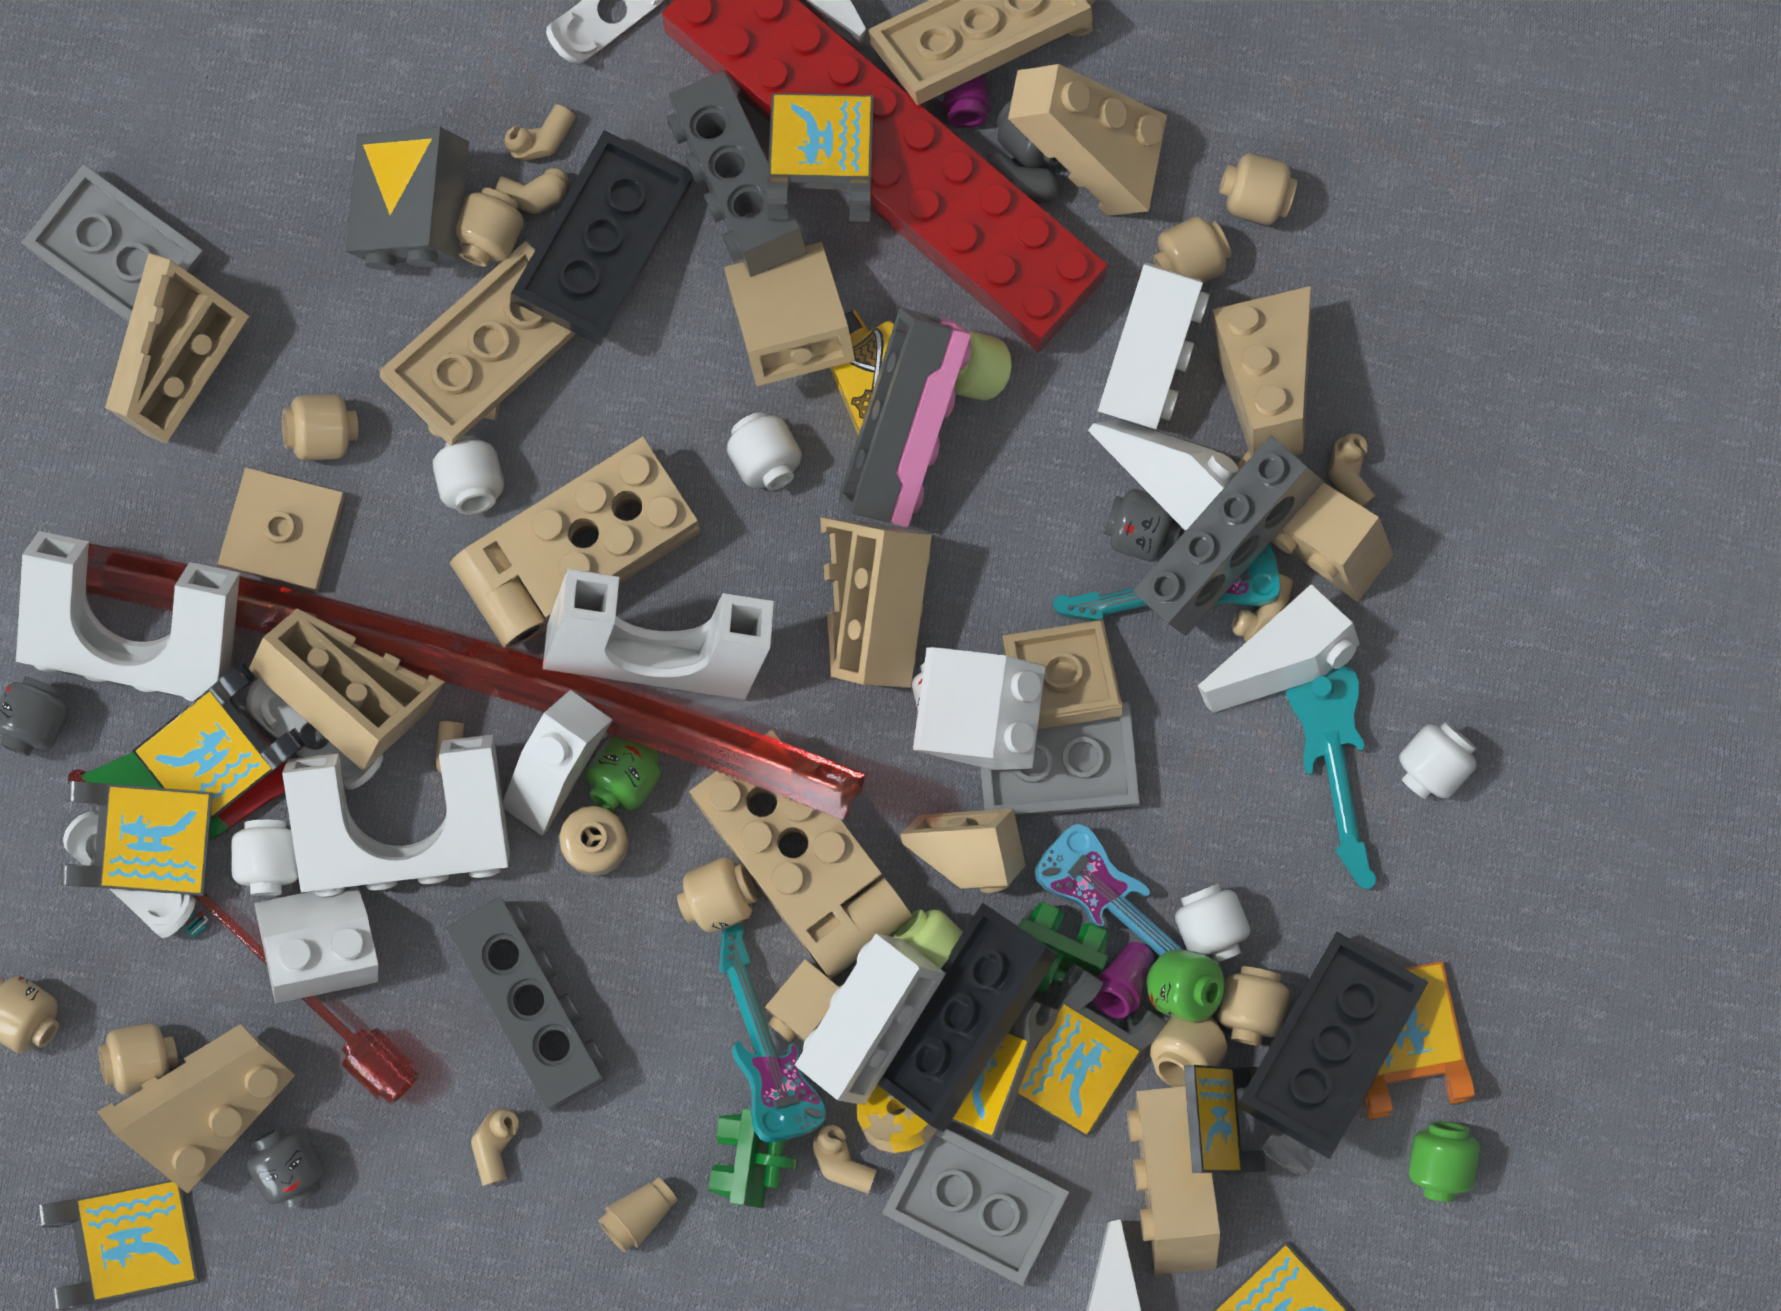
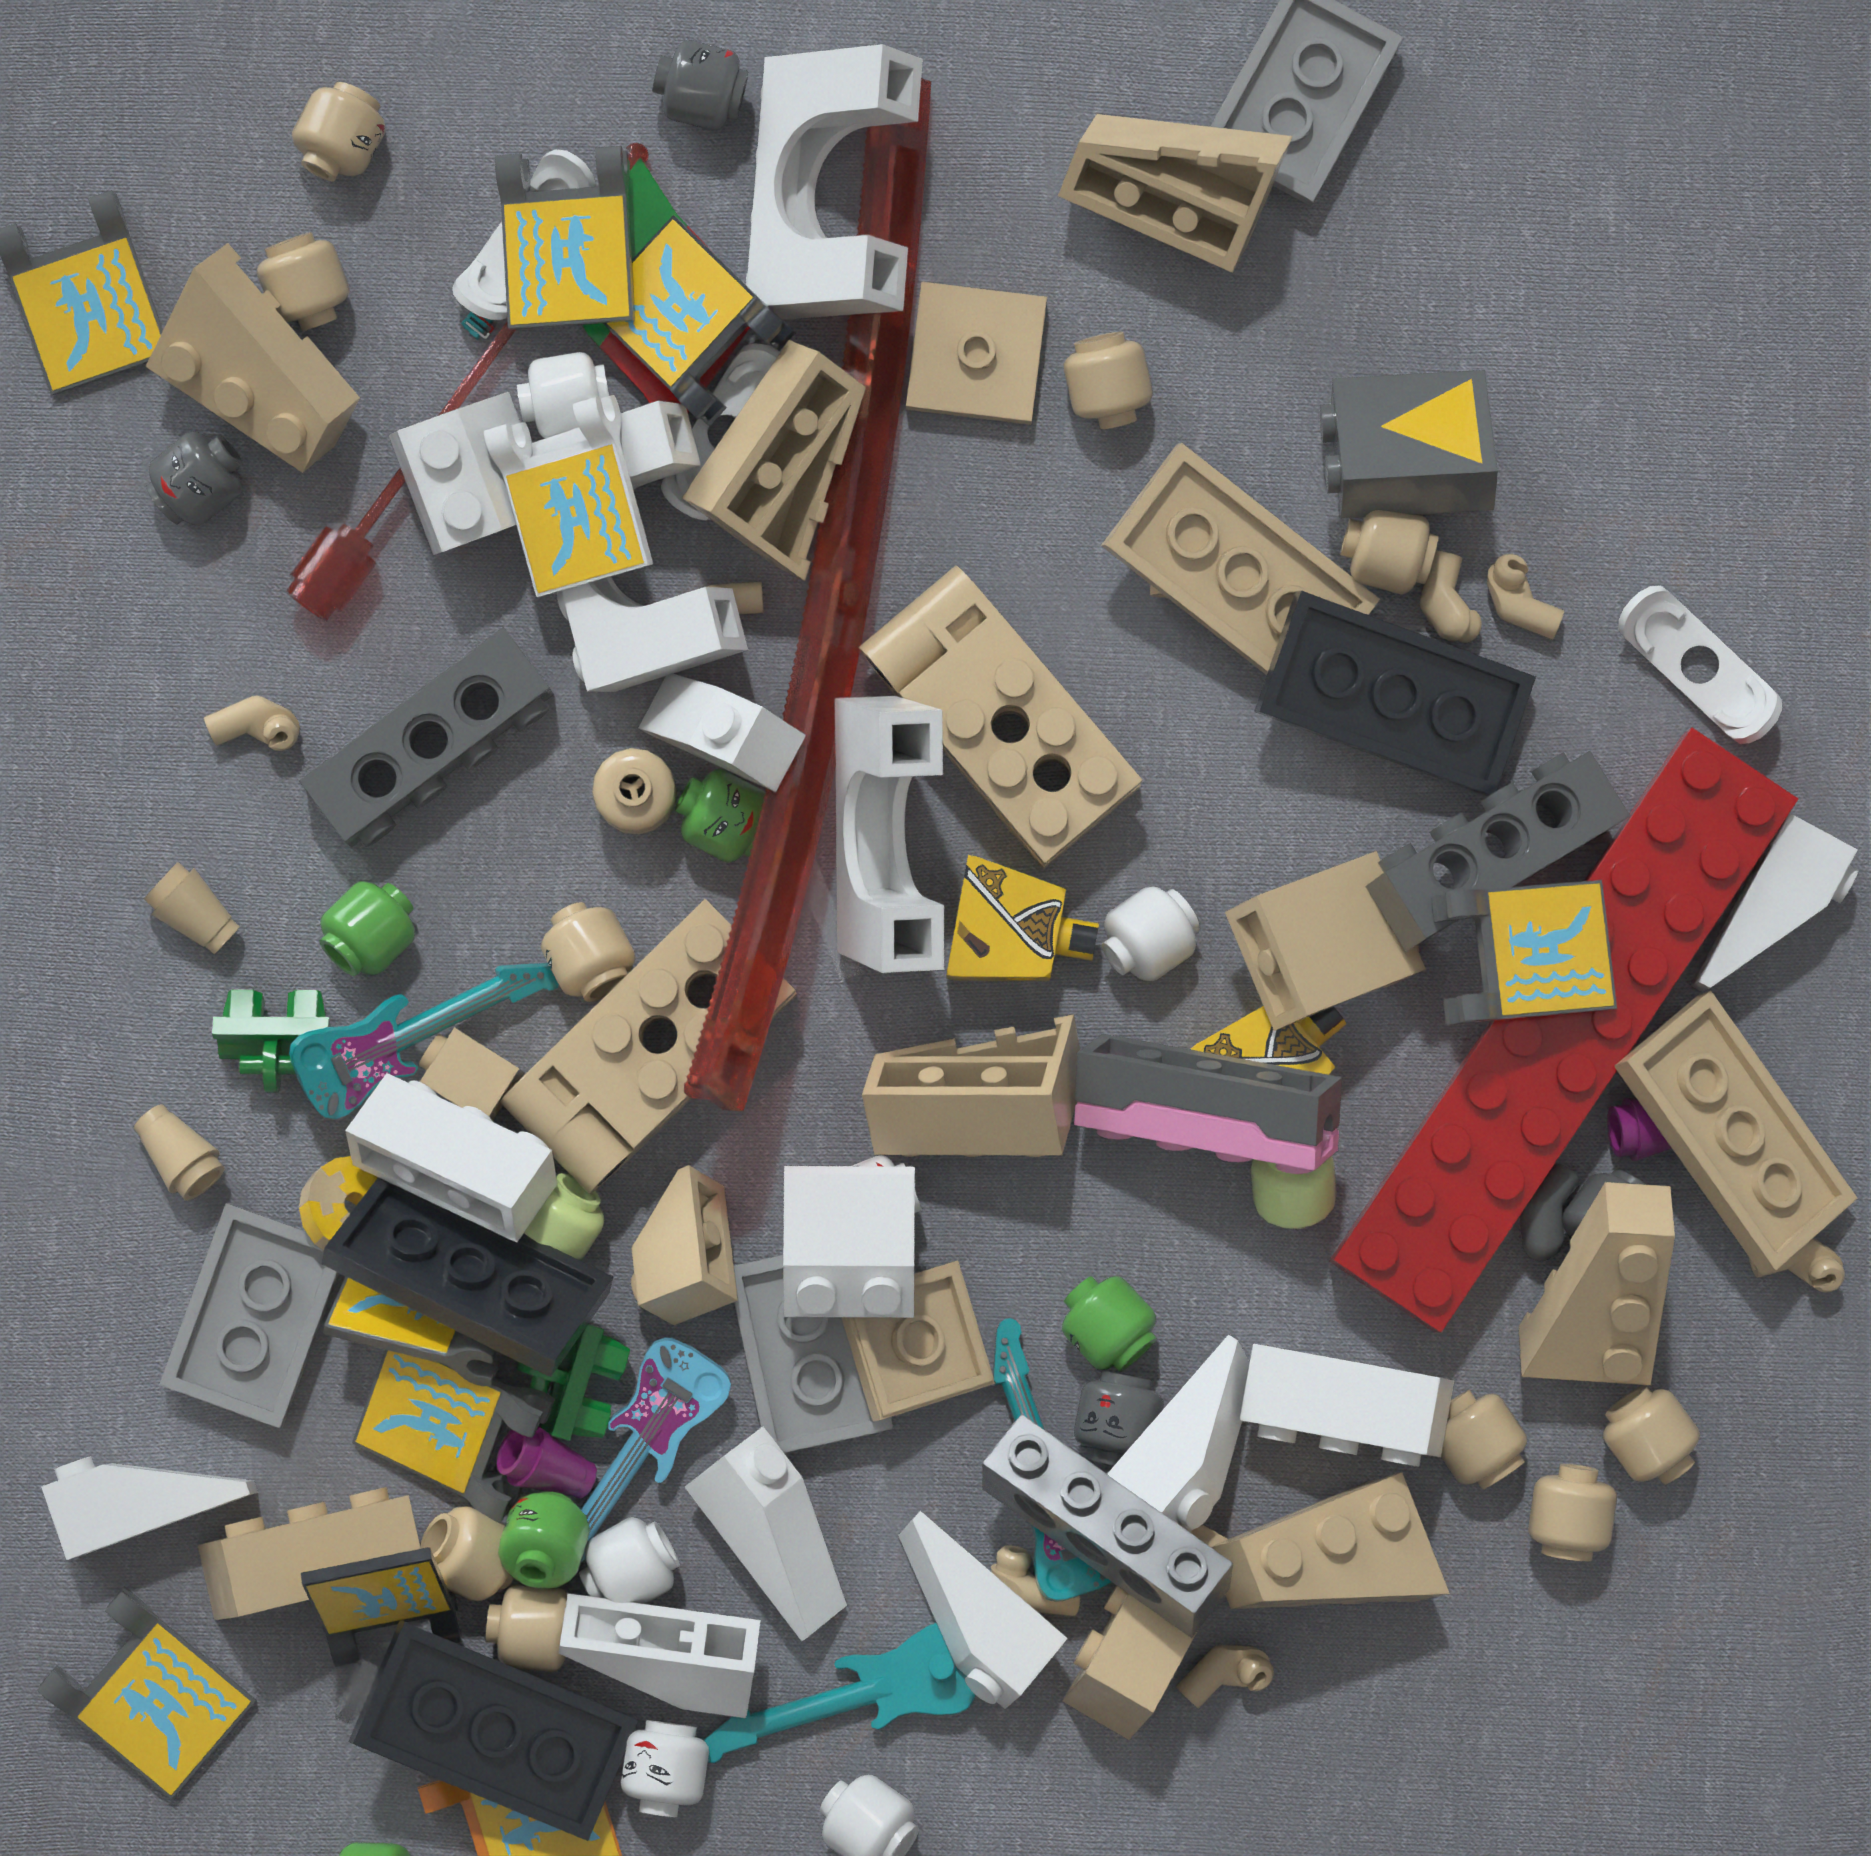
camera: 85 degrees right, 5 degrees up
(354, 854) = (573, 501): none -> flag
(468, 475) = (1071, 572): white head -> none
(674, 1071) = (367, 928): none -> bright green head
(742, 554) = (1012, 927): none -> yellow torso
(835, 1248) = (179, 1153): none -> tan cone
(836, 1161) = (283, 1141): tan arm -> none
(1066, 523) = (1109, 1323): none -> bright green head
(1195, 806) = (771, 1526): none -> white slope
(1205, 122) = (1651, 1435): none -> tan head
(1286, 898) = (667, 1652): none -> white slope
(1376, 915) = (664, 1767): none -> white head

